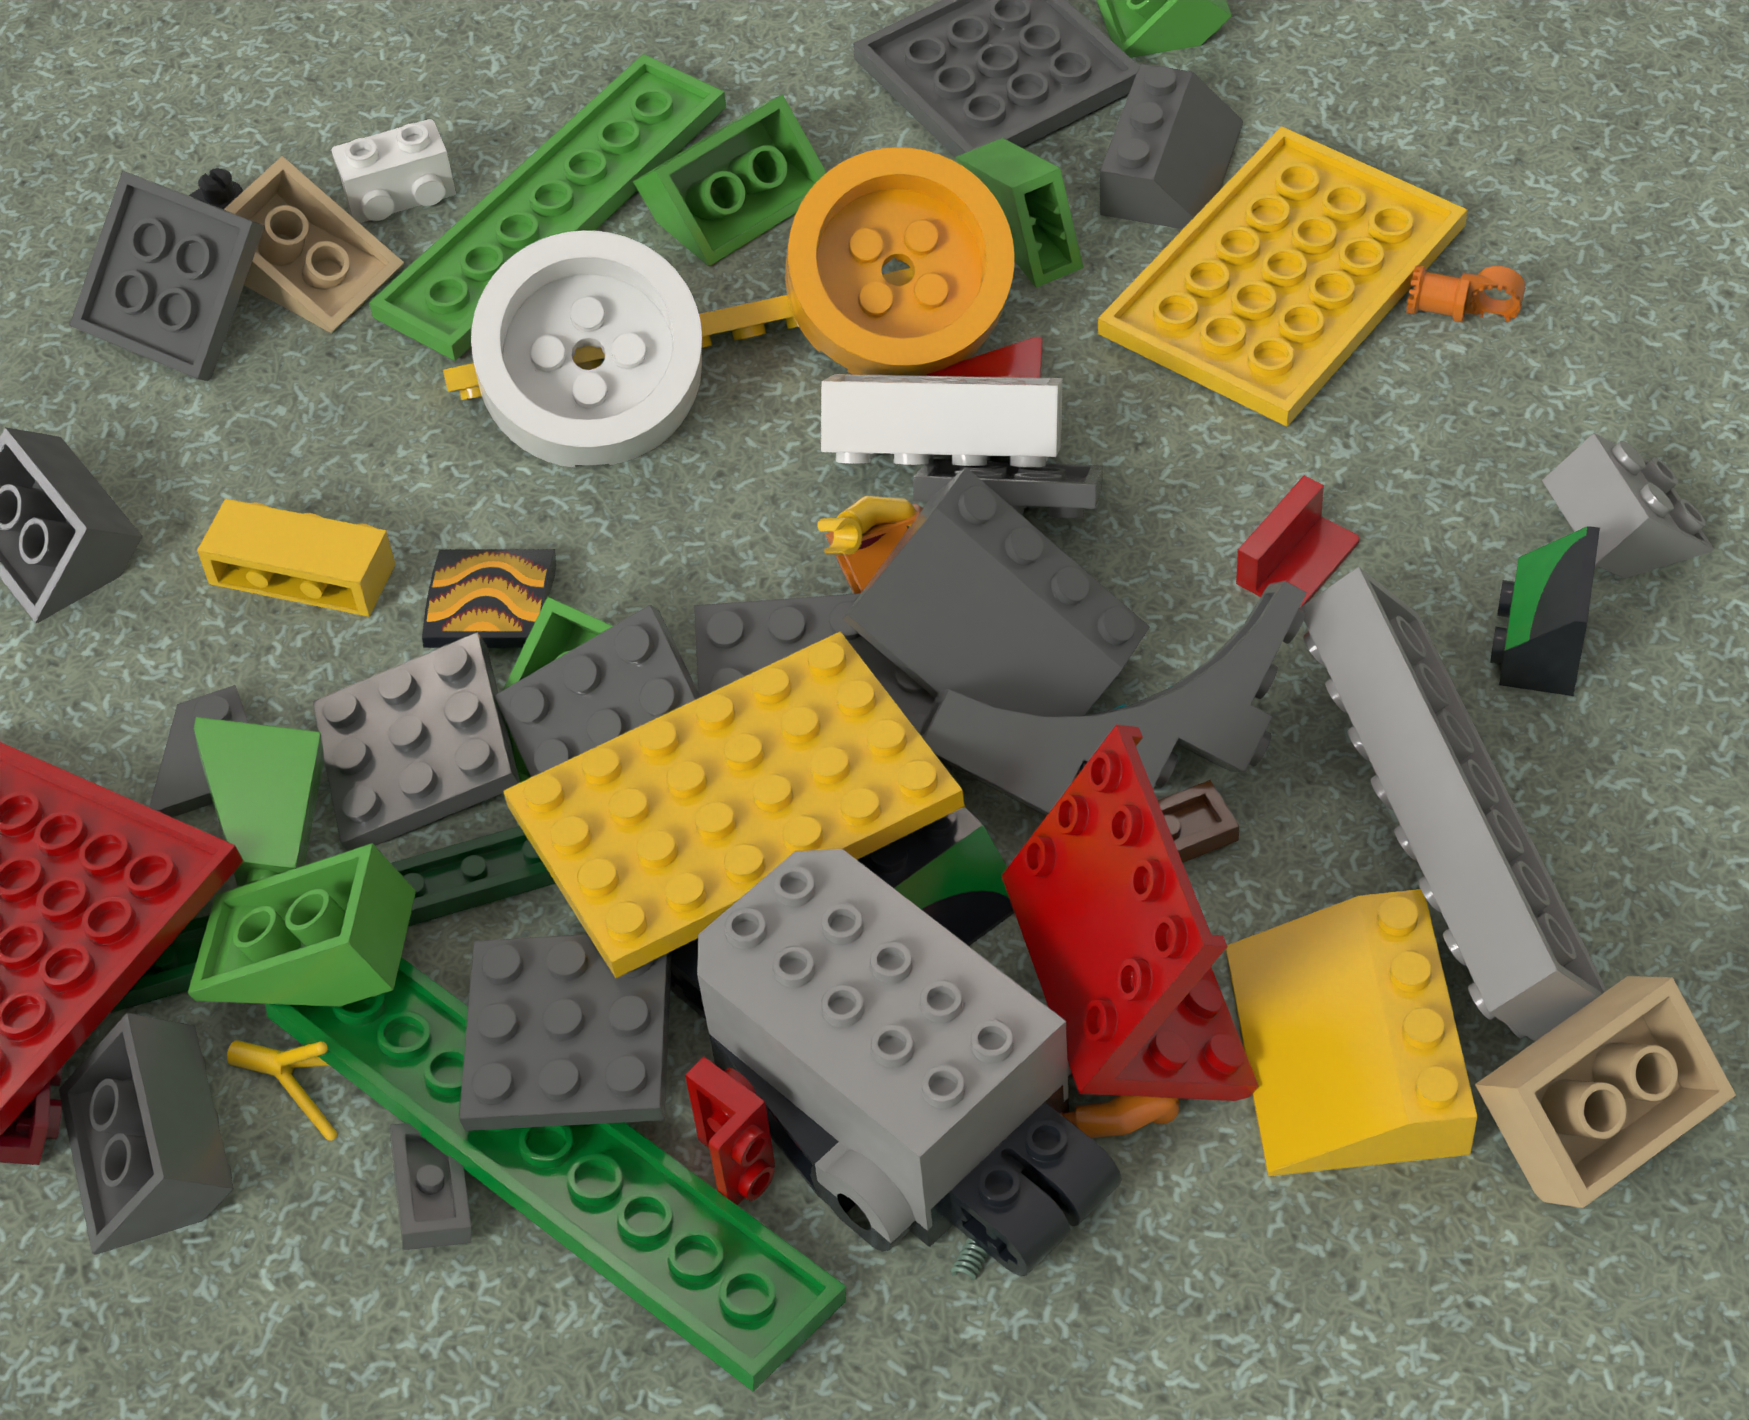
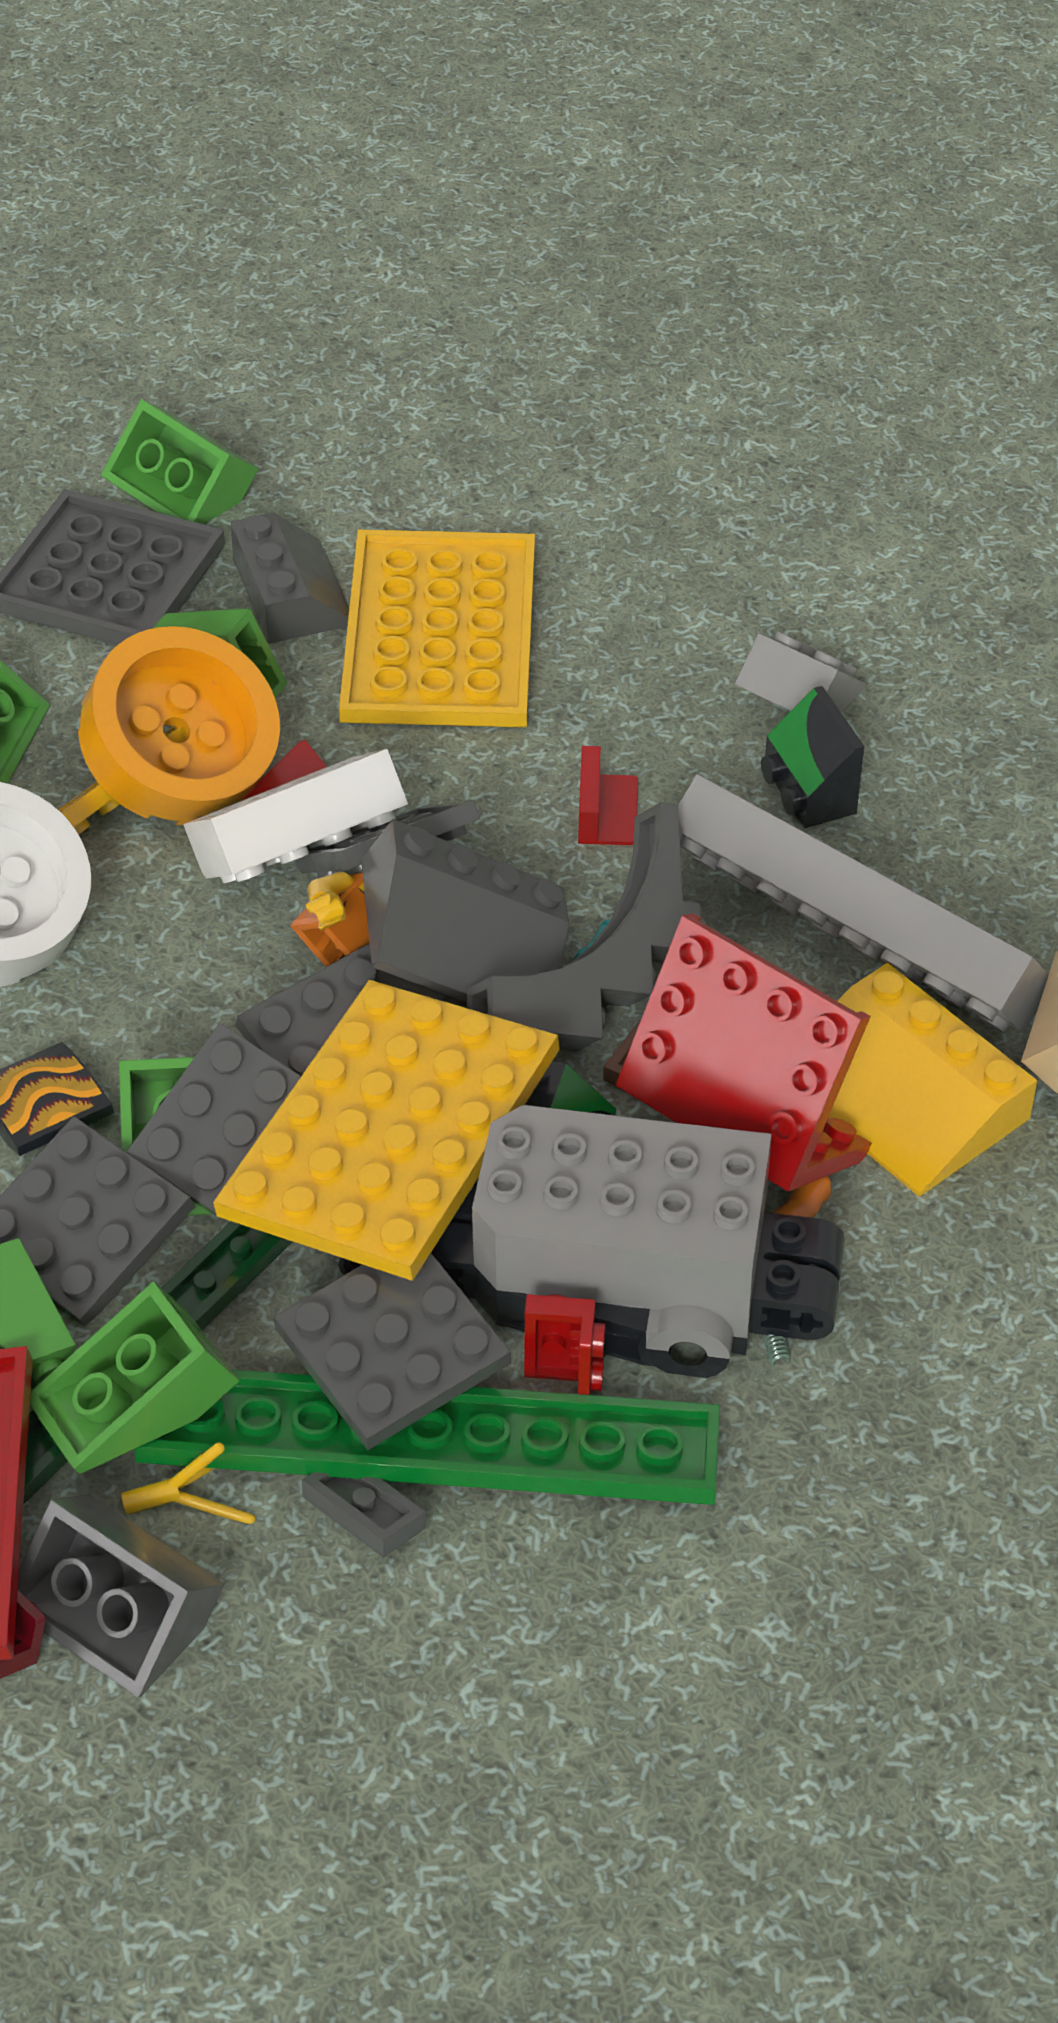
camera: 40 degrees left, 5 degrees down
(1466, 293) = (575, 591): orange connector -> none

